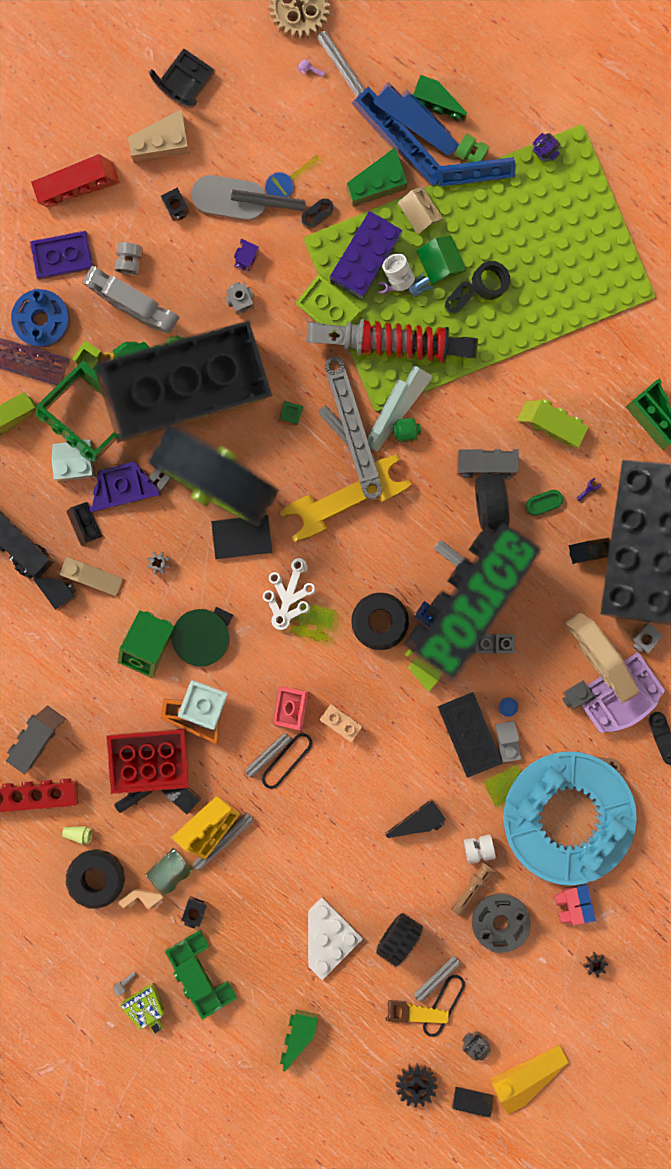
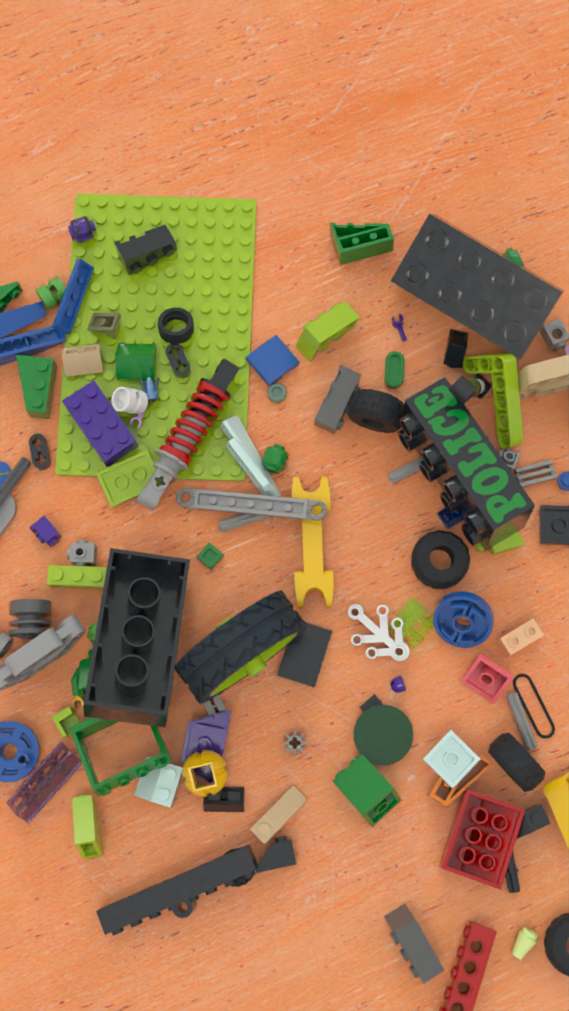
camera: 70 degrees left, 10 degrees down
(105, 504) = (218, 769): none -> yellow piece
(161, 279) = (29, 617): none -> dark grey wheel
(216, 301) = (76, 577): none -> lime brick
(226, 763) = (516, 762): none -> black tyre
(250, 632) = (397, 684): none -> dark purple hinge
(344, 660) = (463, 605): none -> blue piece
(463, 214) = (105, 323): none -> olive slope
(471, 404) = (277, 393): none -> sand green tile
(492, 662) = (551, 469): none -> light grey tile
(500, 385) = (272, 360): none -> blue slope
(539, 574) = (468, 388): none -> black piece
(553, 217) = (145, 249): none -> black wedge
(563, 614) = (505, 392): none -> lime beam

